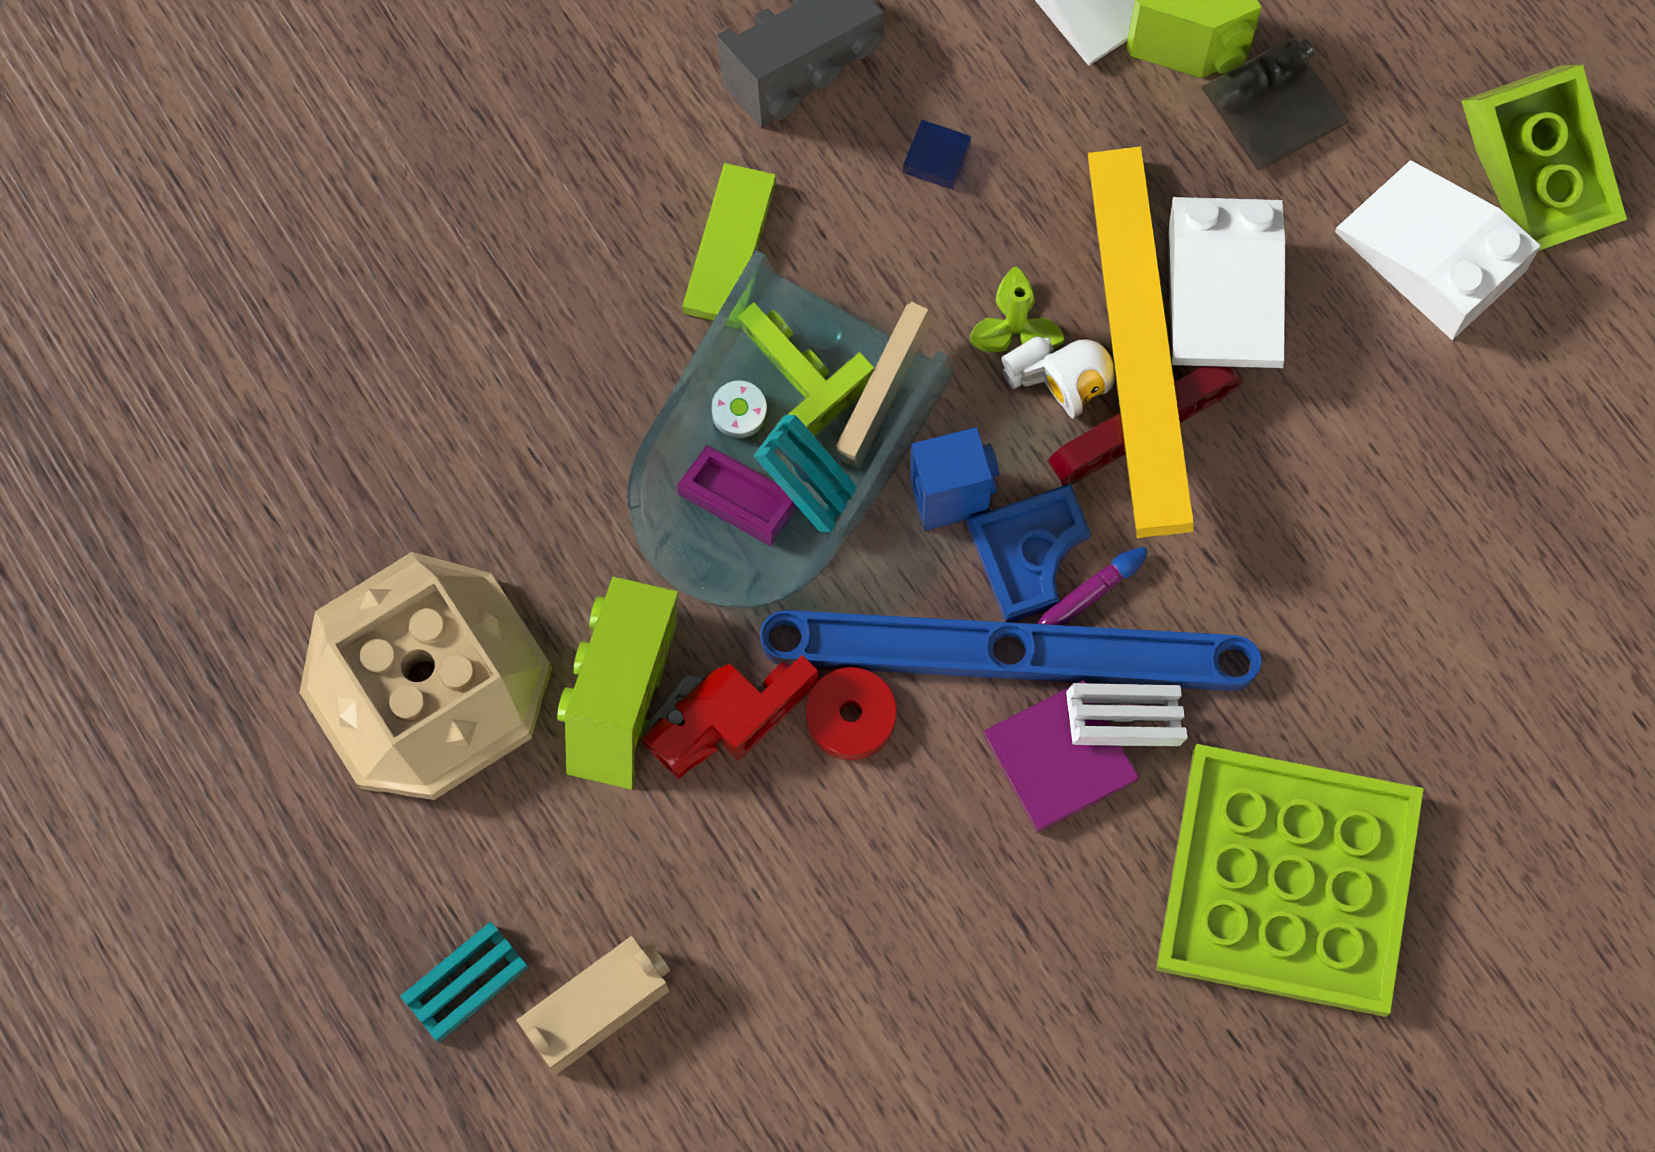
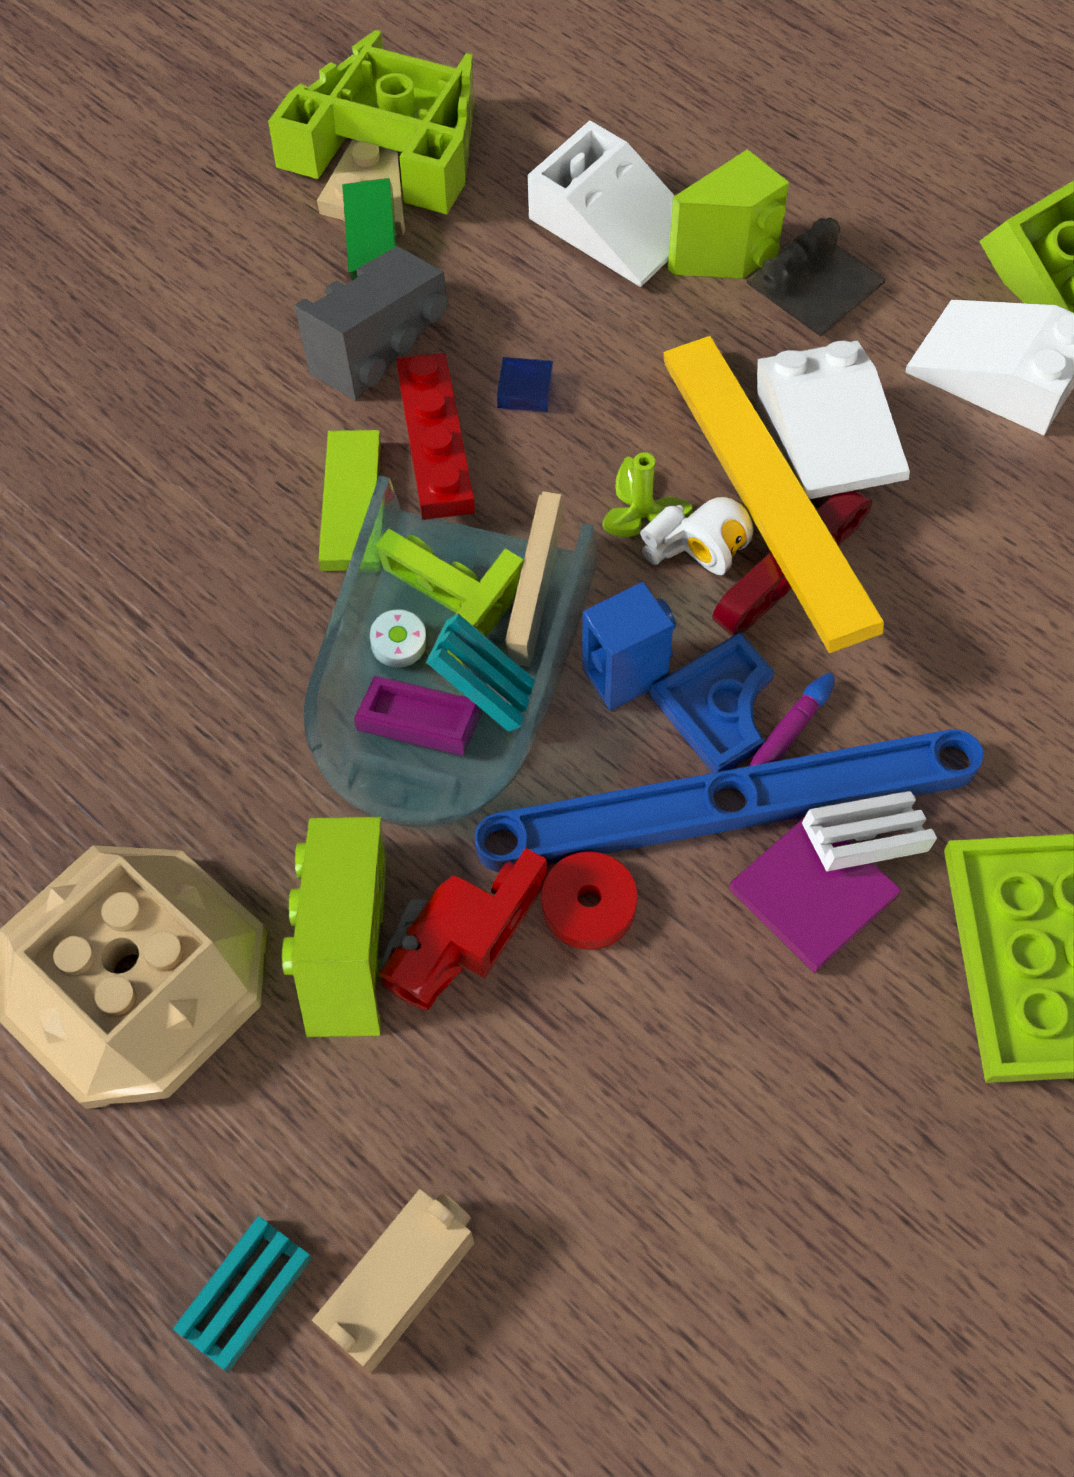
camera: 15 degrees left, 10 degrees down
(828, 194) = (435, 437): none -> red plate

